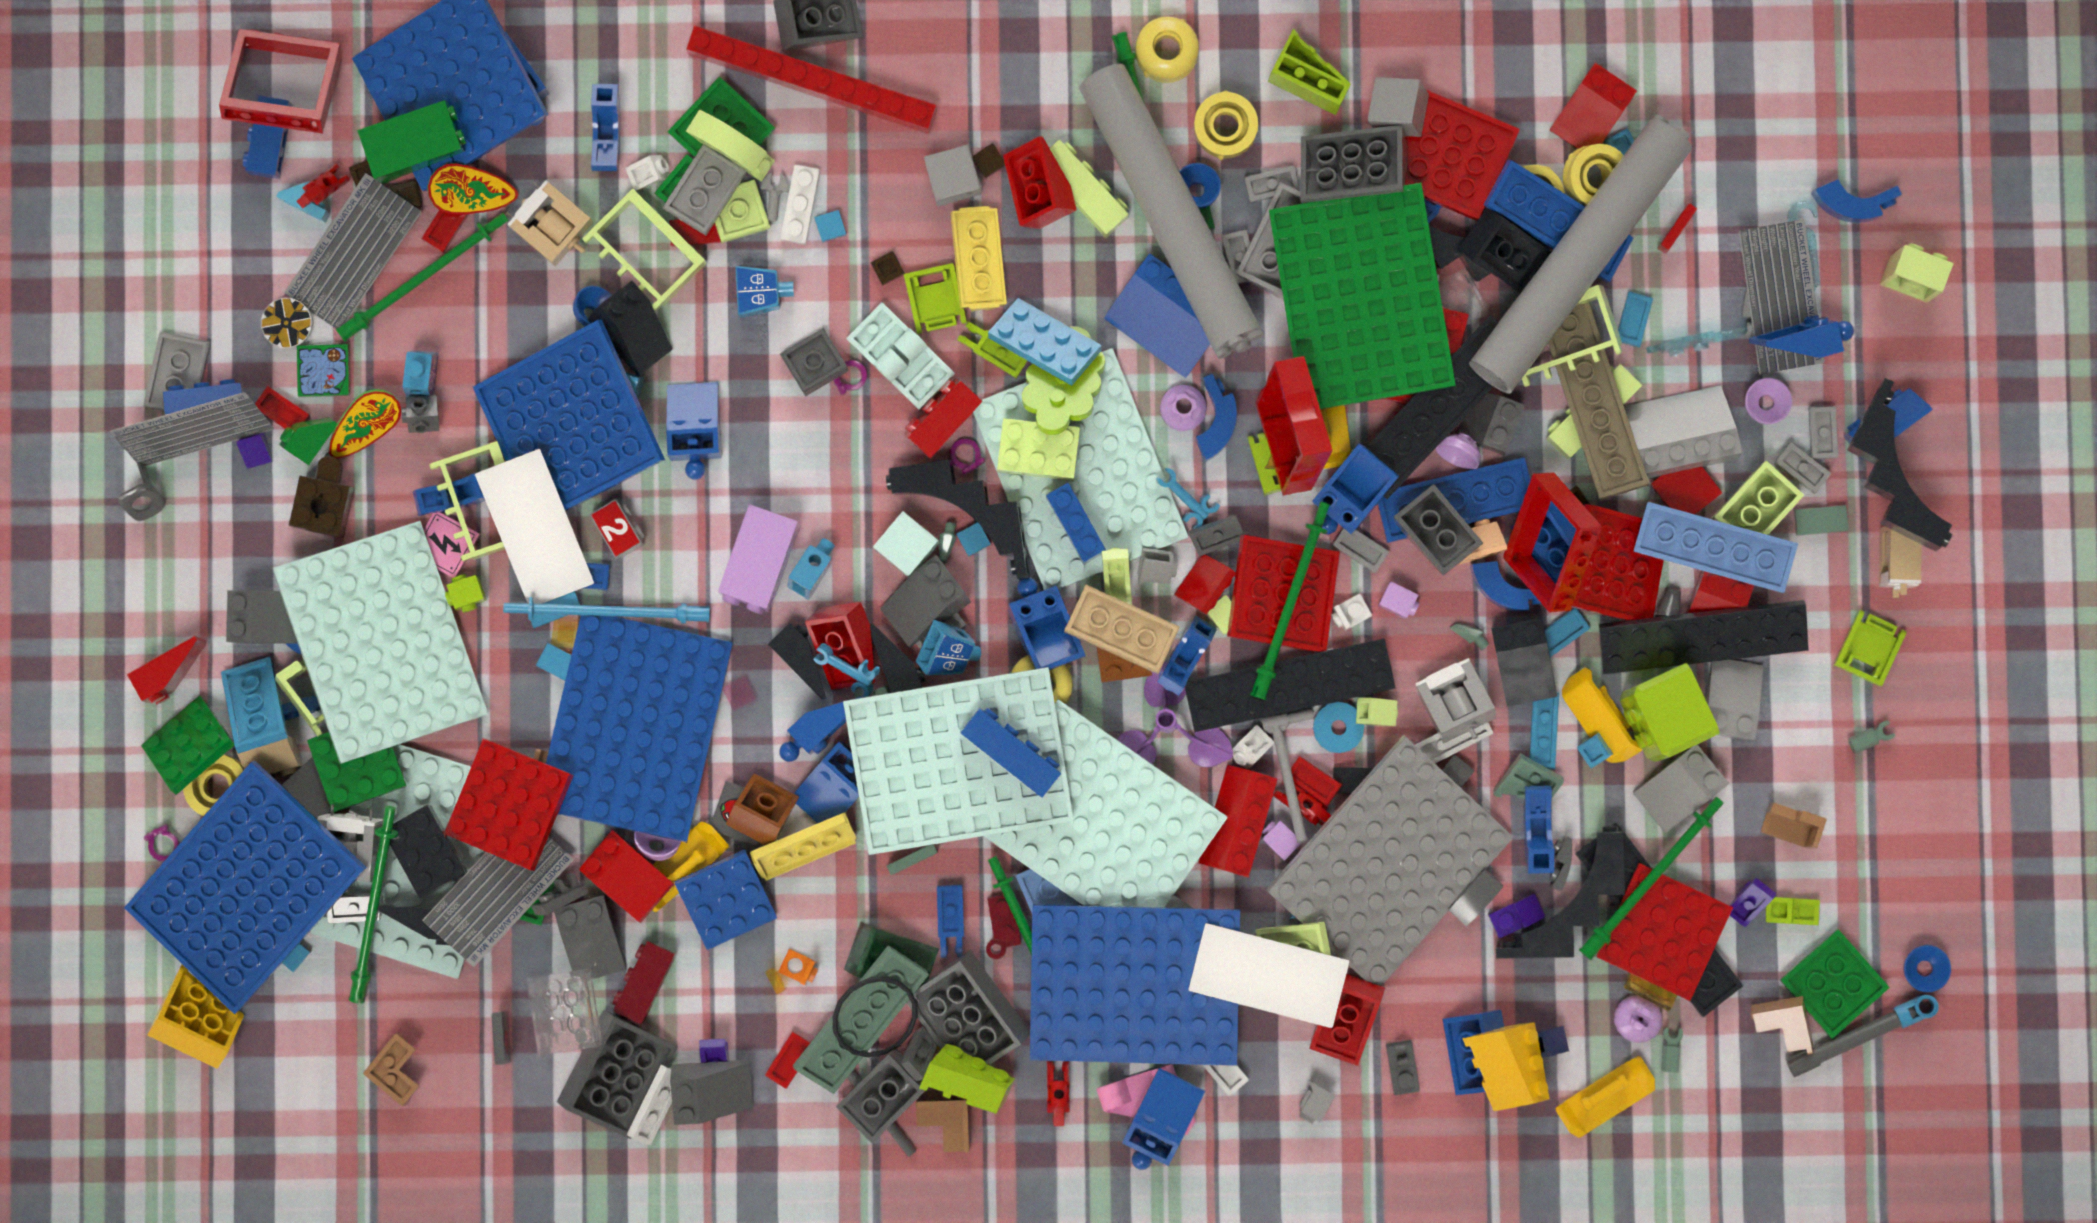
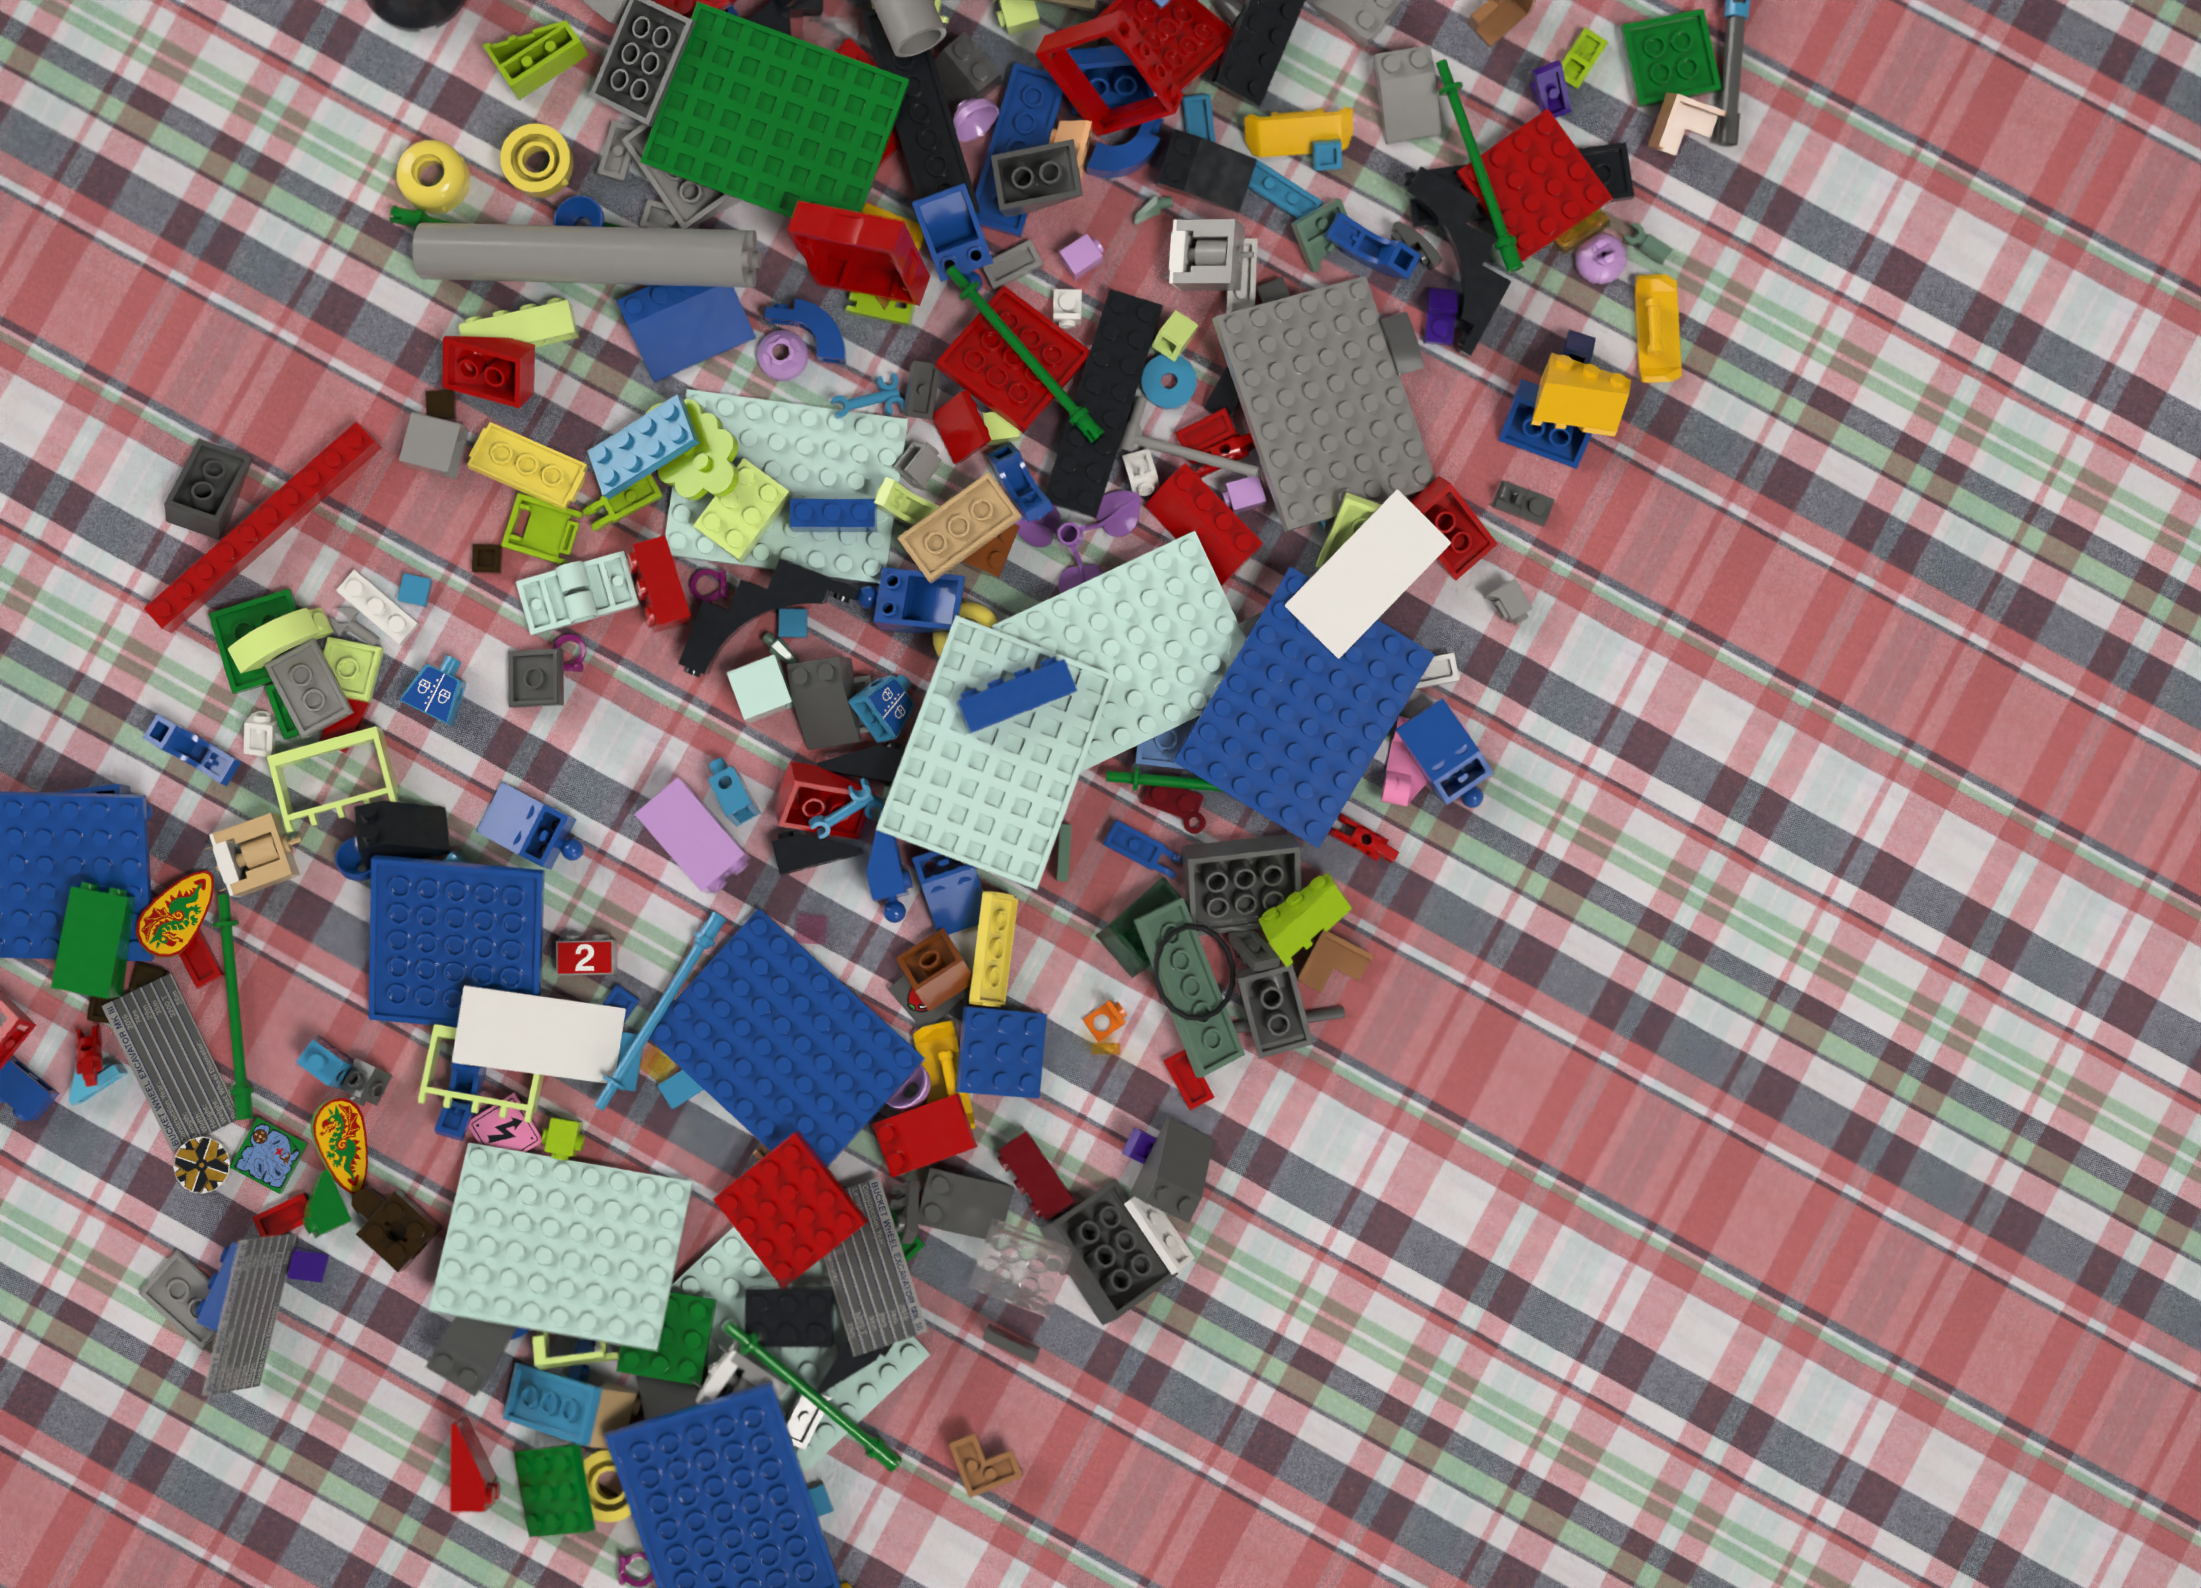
camera: 60 degrees left, 0 degrees up
(145, 489) = (280, 1396): dark grey piece -> none
(1668, 713) = (1333, 61): lime plate -> none

